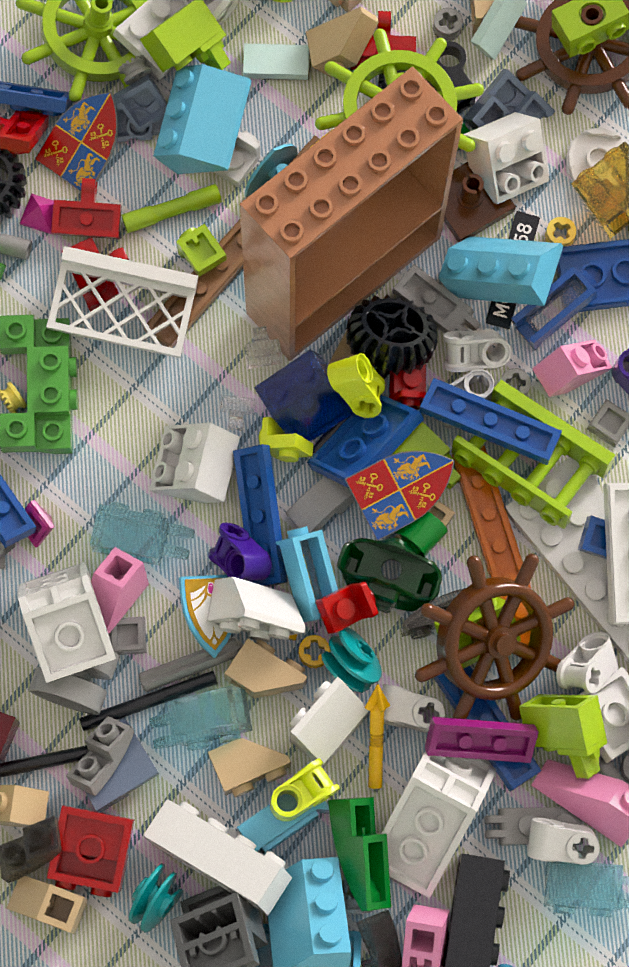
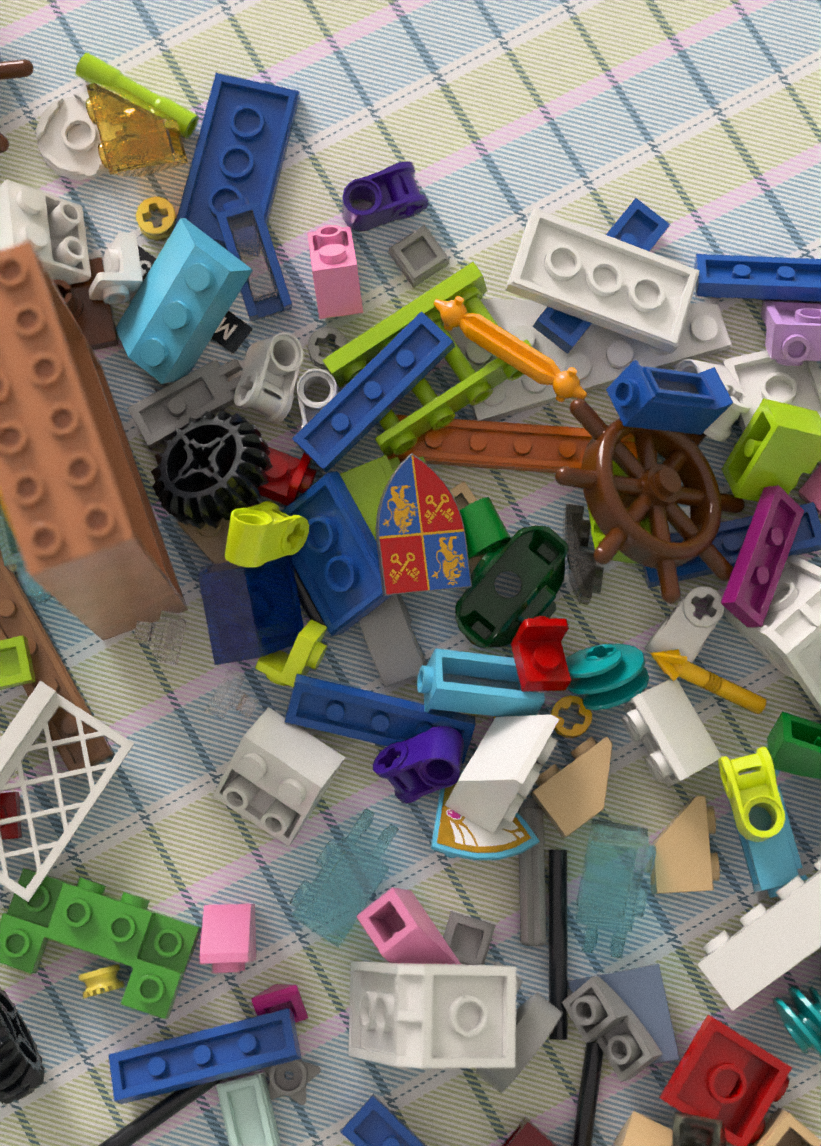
camera: 65 degrees left, 5 degrees up
(70, 468) = (228, 937): none -> bright pink slope
(510, 222) = (121, 273): none -> white bracket
(558, 501) = (510, 349): none -> light orange wheel
(567, 625) = (668, 398): none -> blue window

